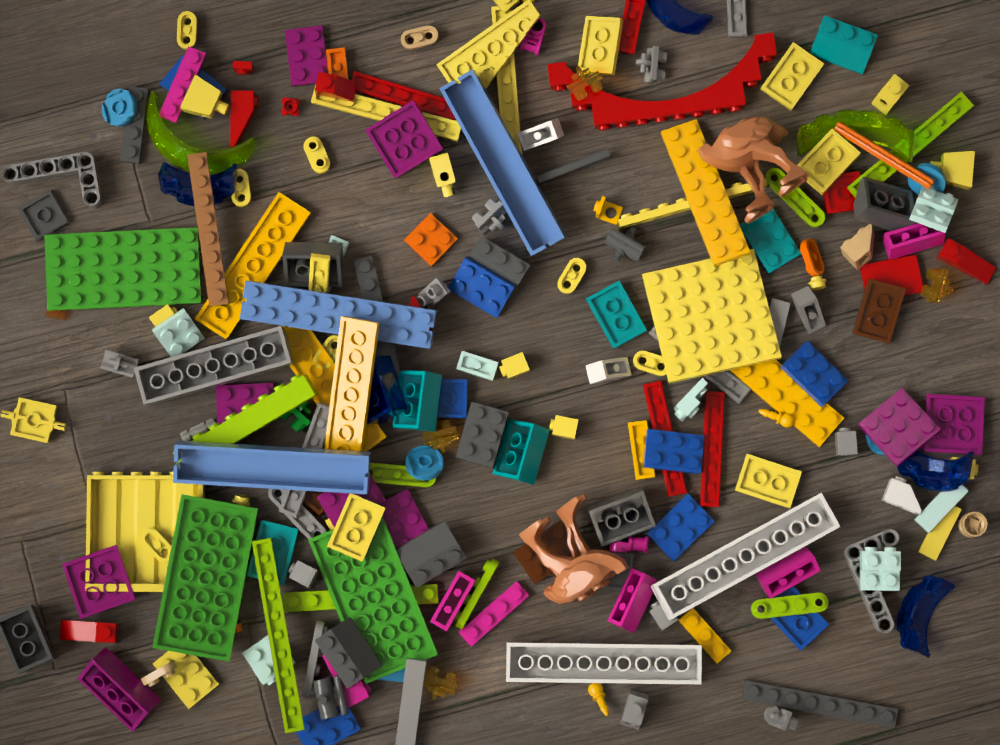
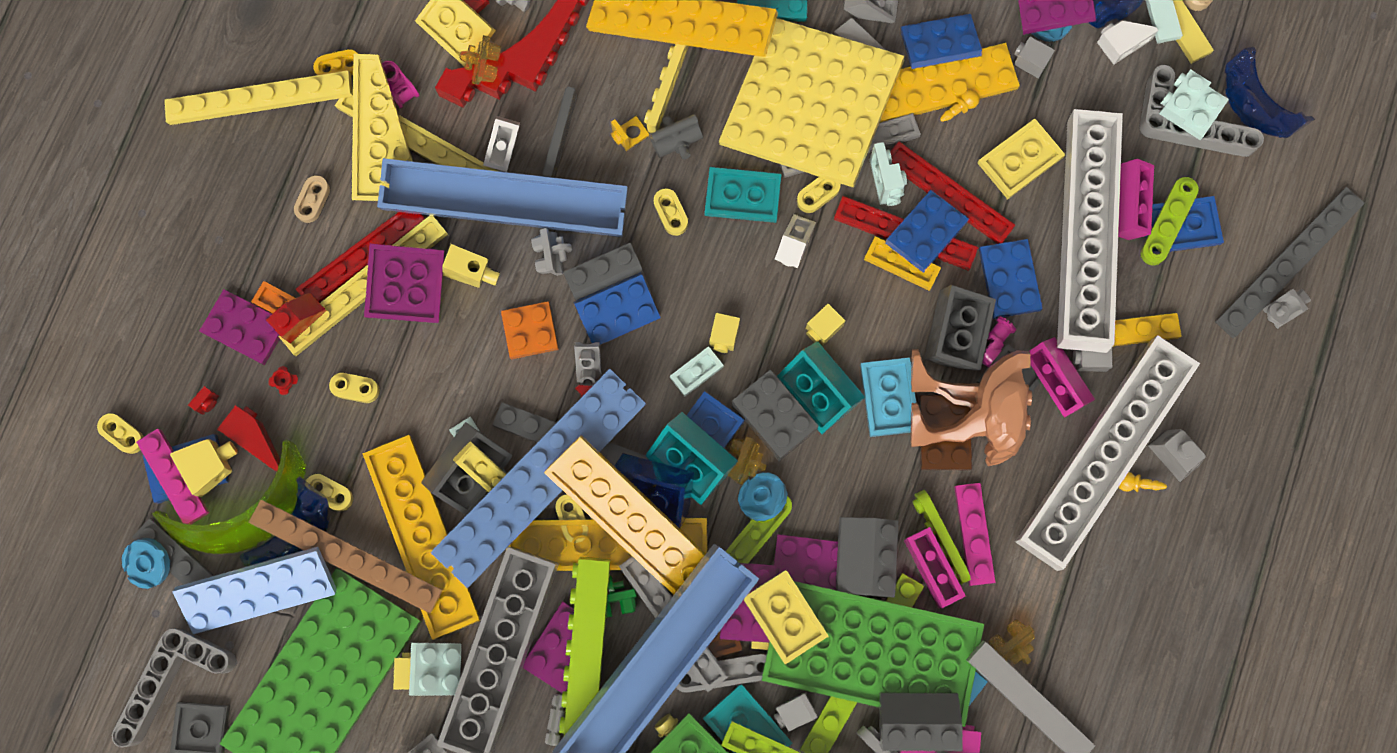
camera: 55 degrees left, 5 degrees down
(149, 188) = (255, 590): none -> light blue plate
(545, 498) = (888, 396): none -> medium azure plate

